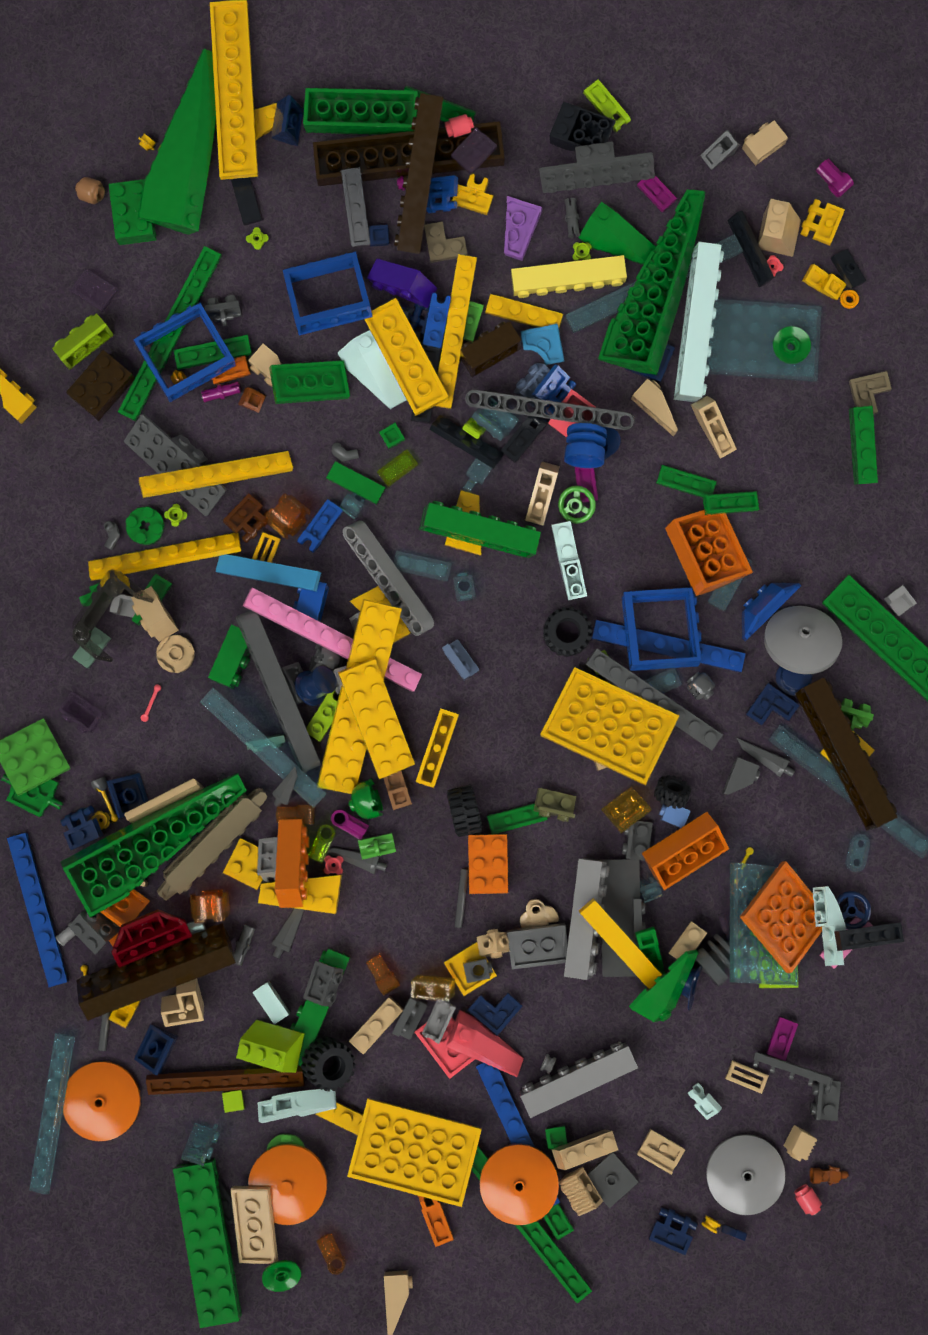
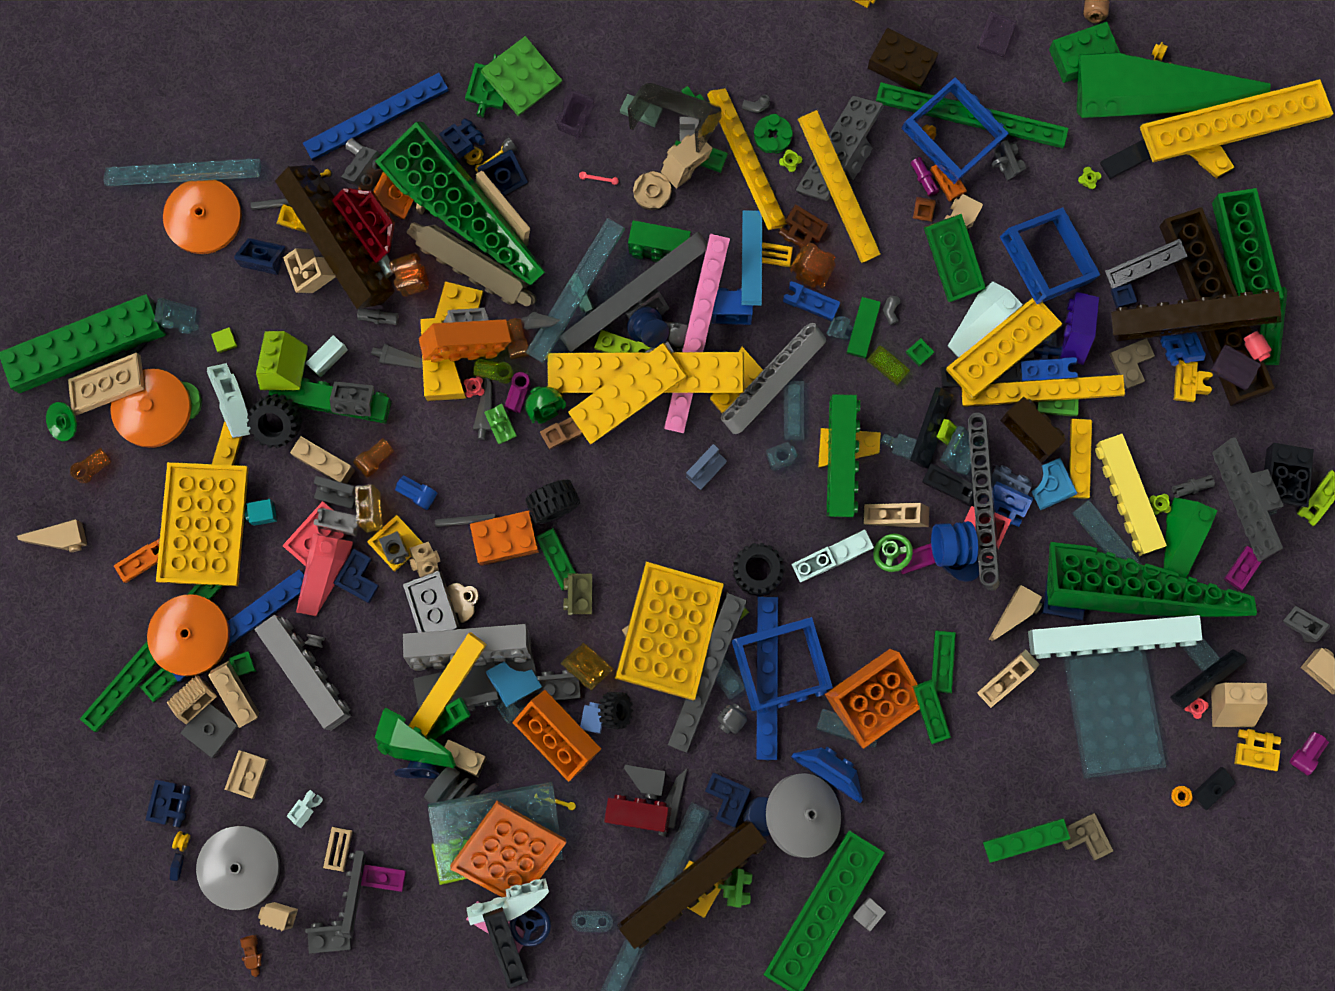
camera: 80 degrees right, 5 degrees down
(82, 341) = (942, 34): lime slope -> none
(210, 353) = (961, 156): green plate -> none
(222, 1081) = (240, 324): reddish brown plate -> none
(287, 121) = (1217, 180): dark blue slope -> none
(413, 1094) = (261, 512): none -> teal brick
(428, 936) = (420, 494): none -> blue piece
(437, 748) = (610, 462): yellow brick -> none
(520, 226) = (1174, 435): medium lavender wing -> none
(629, 882) = (512, 684): none -> dark azure tile
(771, 790) = (638, 813): none -> dark red brick
(796, 337) = (1125, 741): green dish -> none
(808, 1199) = (222, 938): coral brick -> none
(824, 282) = (1192, 765): yellow slope -> none

